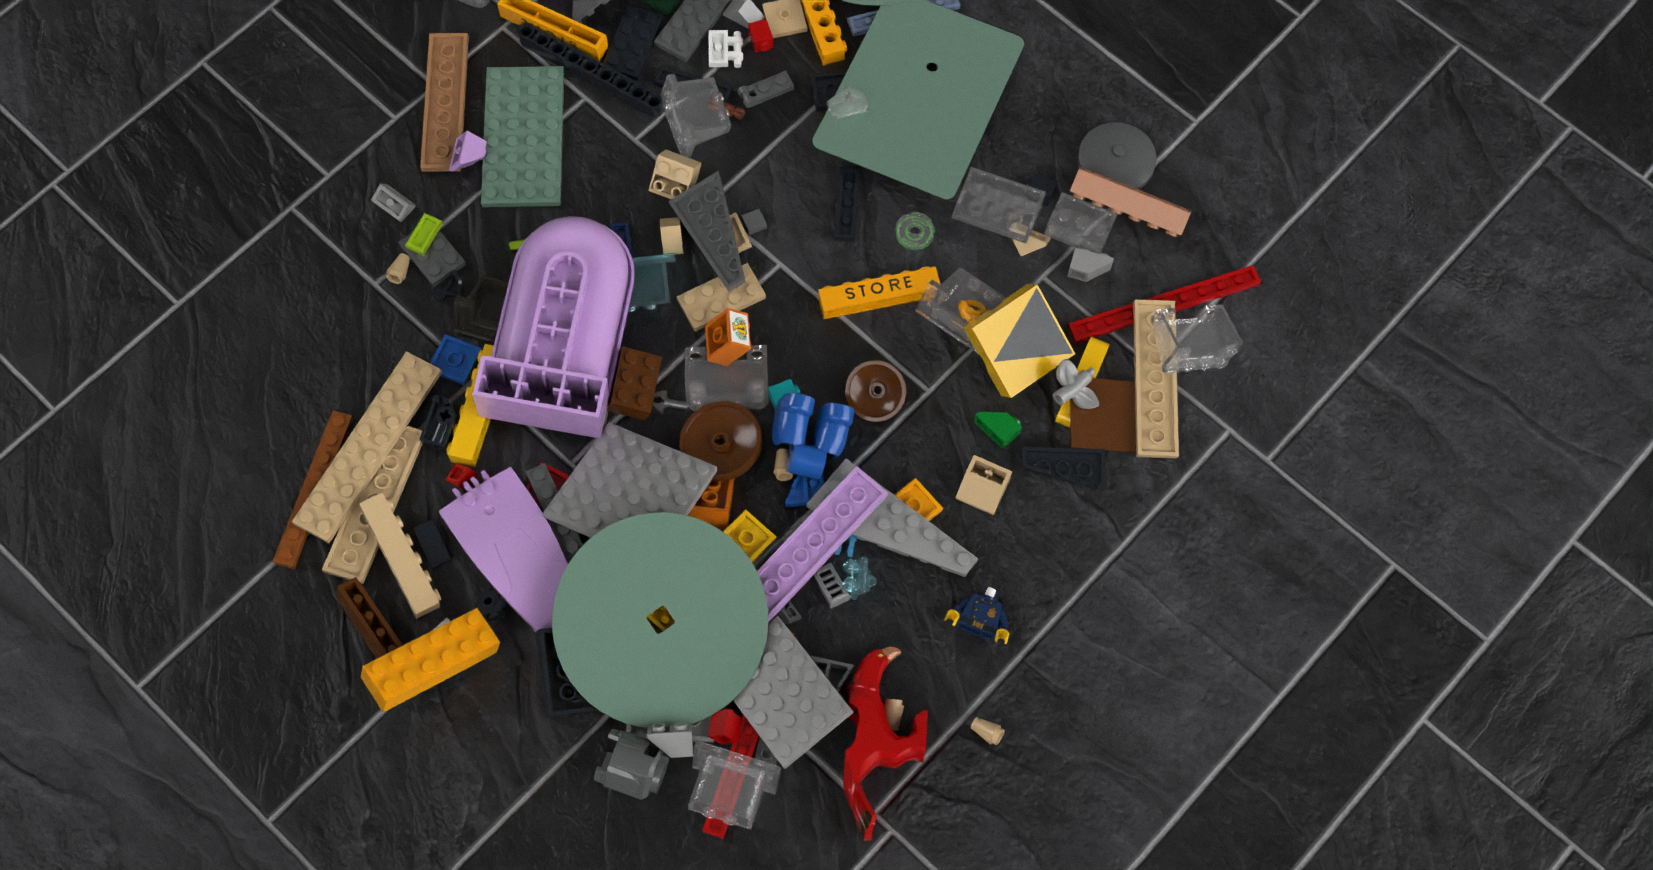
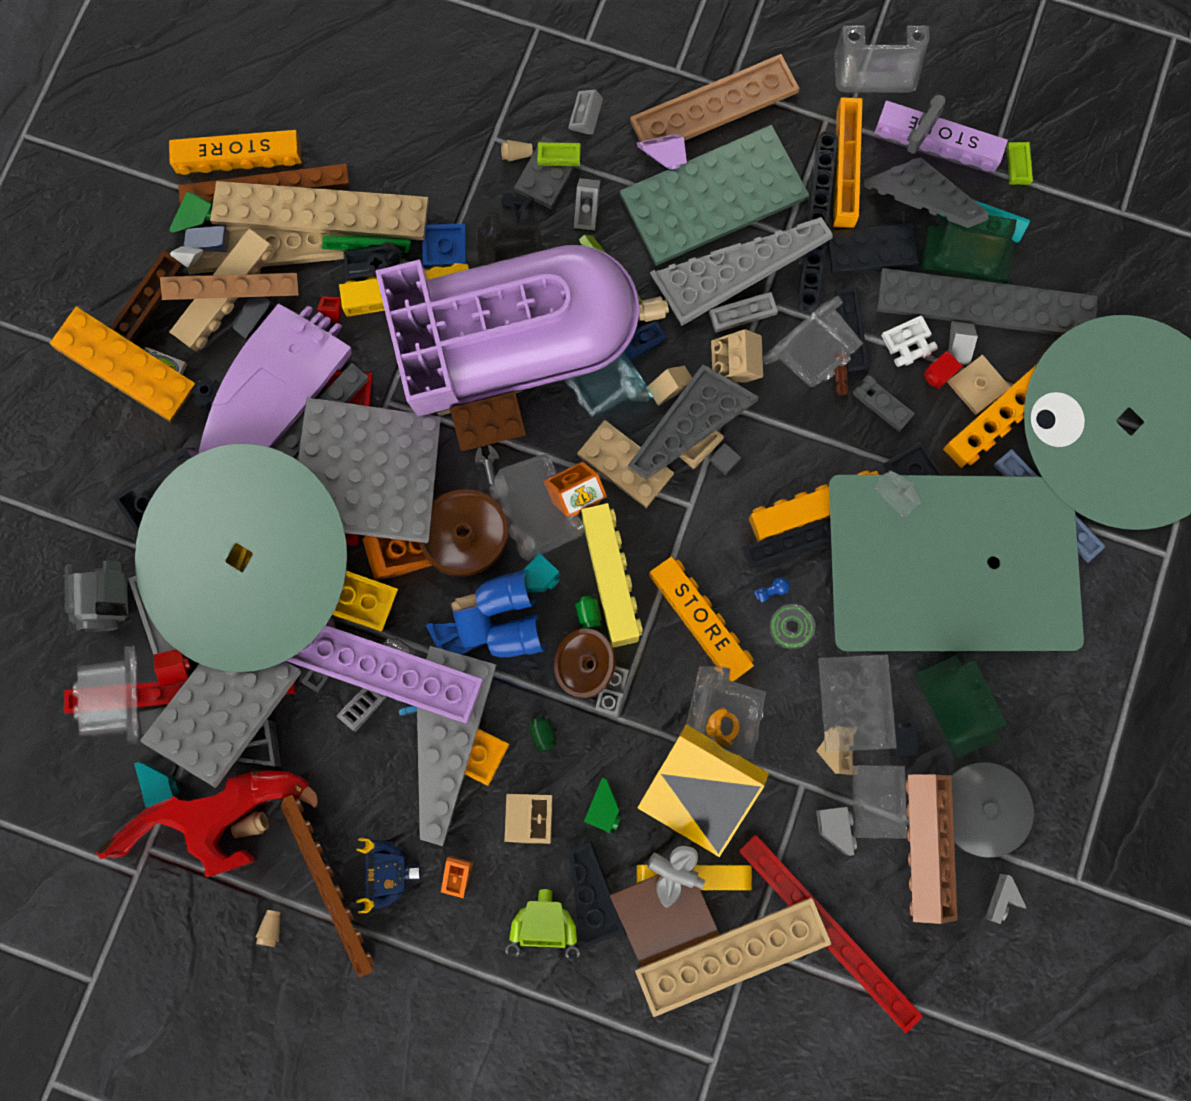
camera: 70 degrees right, 10 degrees up
(268, 499) = (235, 152): none -> light orange brick
(308, 557) = (192, 212): none -> green slope
(342, 551) = (207, 238): none -> slope
(351, 570) = (187, 255): none -> white slope
(404, 540) = (228, 286): none -> medium nougat arch
(417, 423) = (351, 242): none -> green slope
(479, 232) = (587, 204): none -> light grey slope
(598, 164) = (712, 279): none -> light grey wing
(601, 215) = (652, 309): none -> tan brick
(637, 155) = (743, 312): none -> light grey plate
(672, 739) = (135, 622): light grey slope -> none
(812, 340) = (610, 575): none -> light yellow brick
(823, 779) = (156, 784): none -> teal slope
(825, 189) = (794, 513): none -> light orange brick
(834, 373) = (588, 612): none -> green brick
(860, 578) = (376, 734): clear light blue hips -> none
(879, 225) = (780, 586): none -> blue arm
(914, 386) = (611, 696): none -> light grey slope
(919, 448) = (542, 734): none -> dark green brick
(971, 665) = (331, 895): none -> dark orange plate
(1006, 561) = (456, 876): none -> orange slope
(1030, 135) = (961, 704): none -> clear green windscreen
(1074, 508) = (543, 925): none -> lime torso
(1186, 172) = (1004, 893): none -> light grey slope
(1195, 342) = (794, 985): clear windscreen -> none

